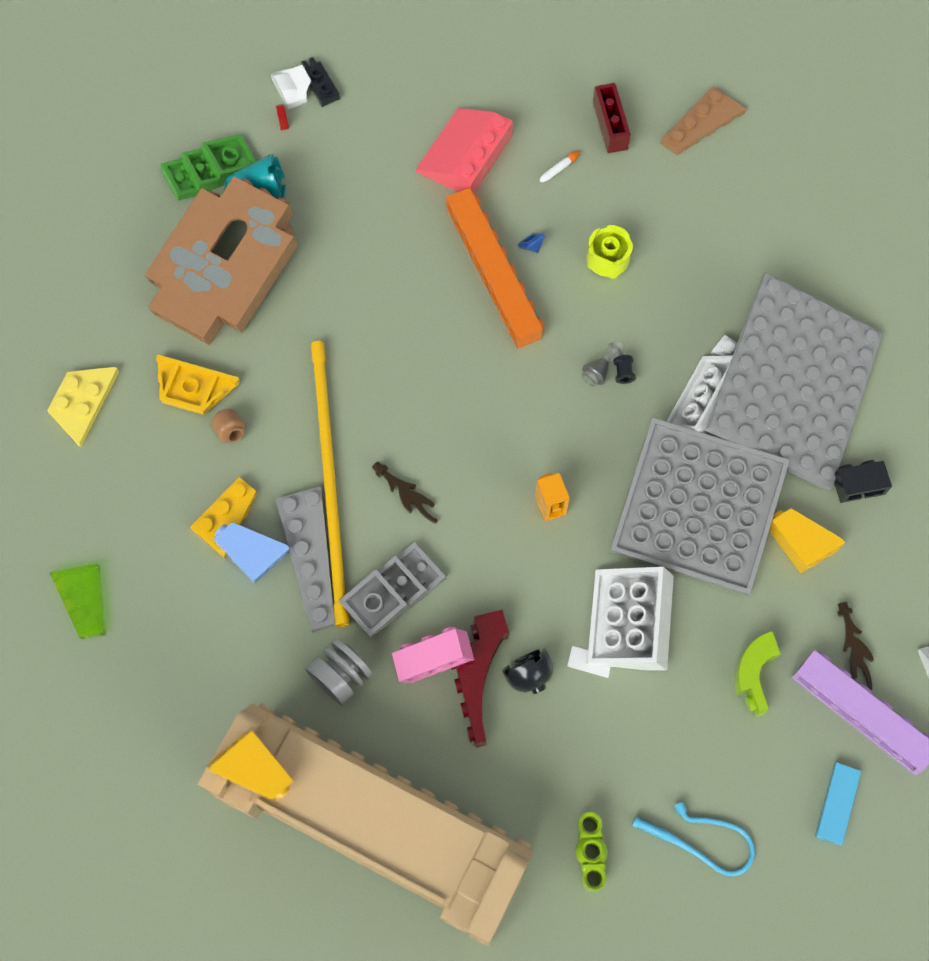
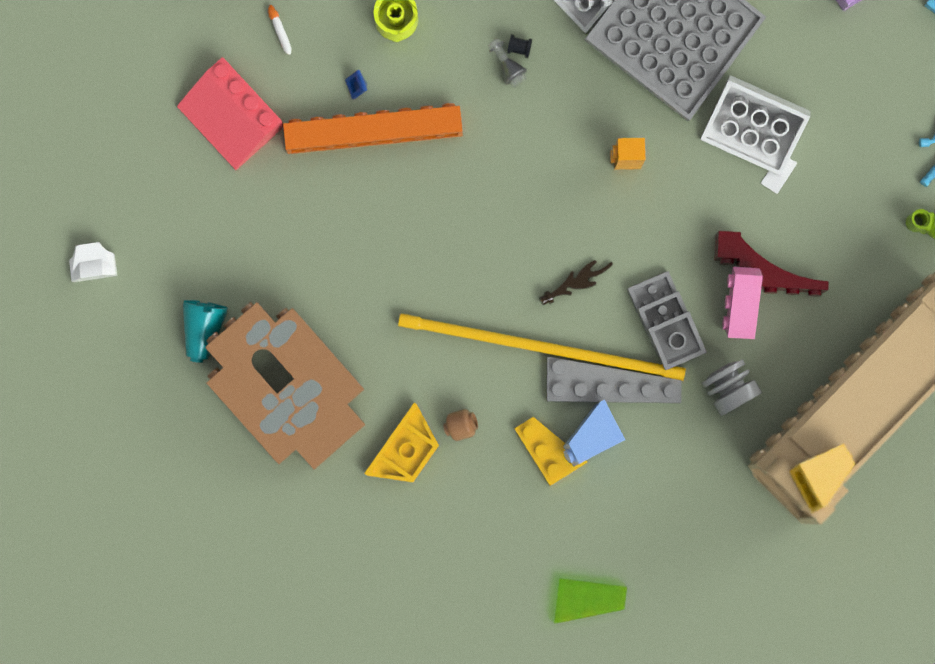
camera: 75 degrees left, 15 degrees up
(81, 400) = (385, 558): light yellow wing -> none
(207, 166) = (164, 372): bright green slope -> none
(282, 117) = (128, 283): red tile -> none
(321, 82) = (104, 232): black hinge -> none
(530, 672) = (776, 225): black cylinder -> none
(748, 671) = (828, 42): lime arch -> none

